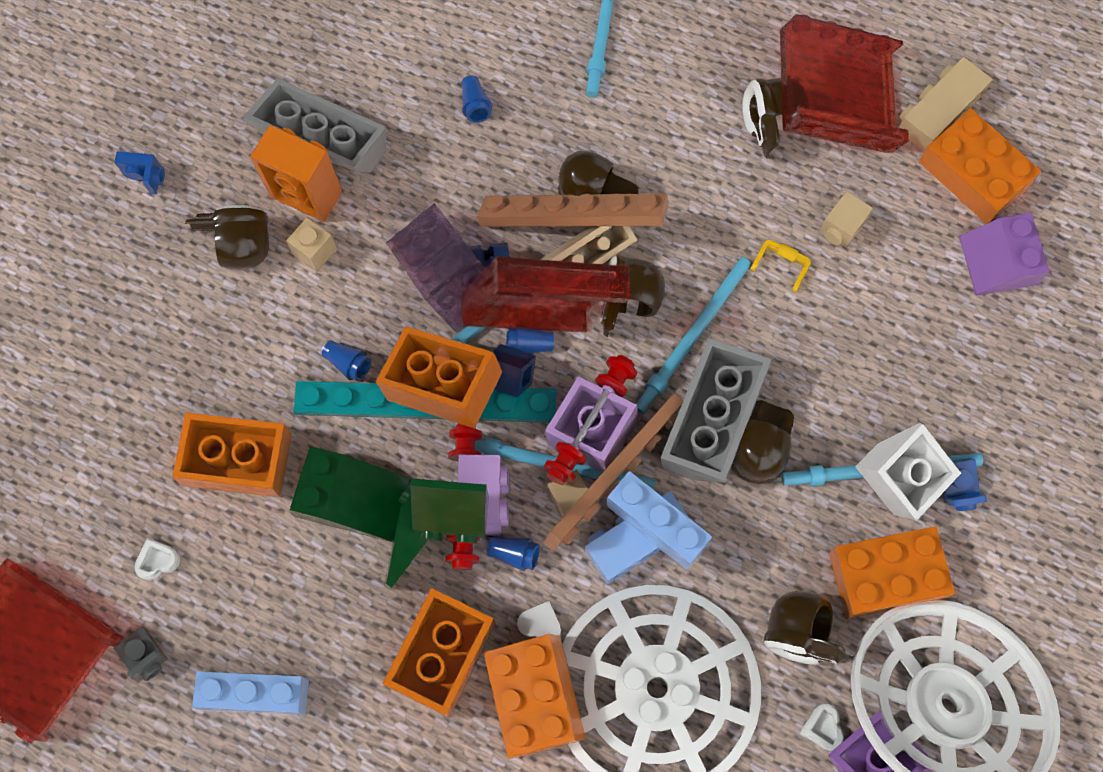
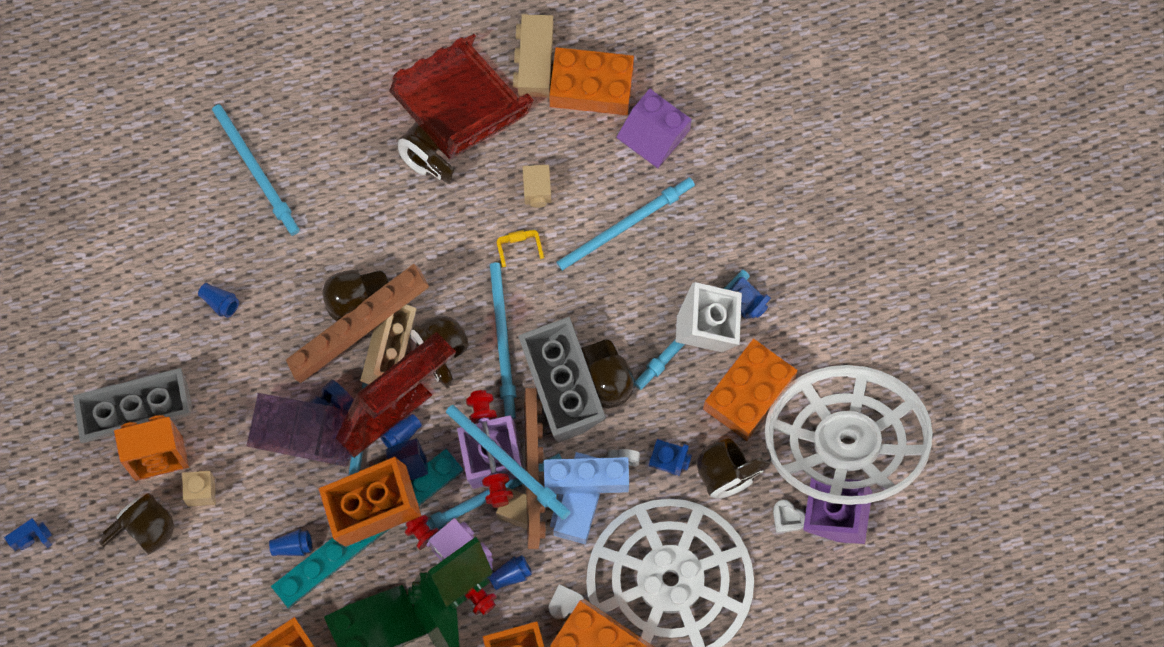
camera: 45 degrees left, 0 degrees up
(599, 505) = (544, 495): none -> medium azure bar
(719, 540) = (633, 456): none -> white tile
(757, 572) = (670, 457): none -> blue bracket
(964, 328) = (668, 196): none -> medium azure bar

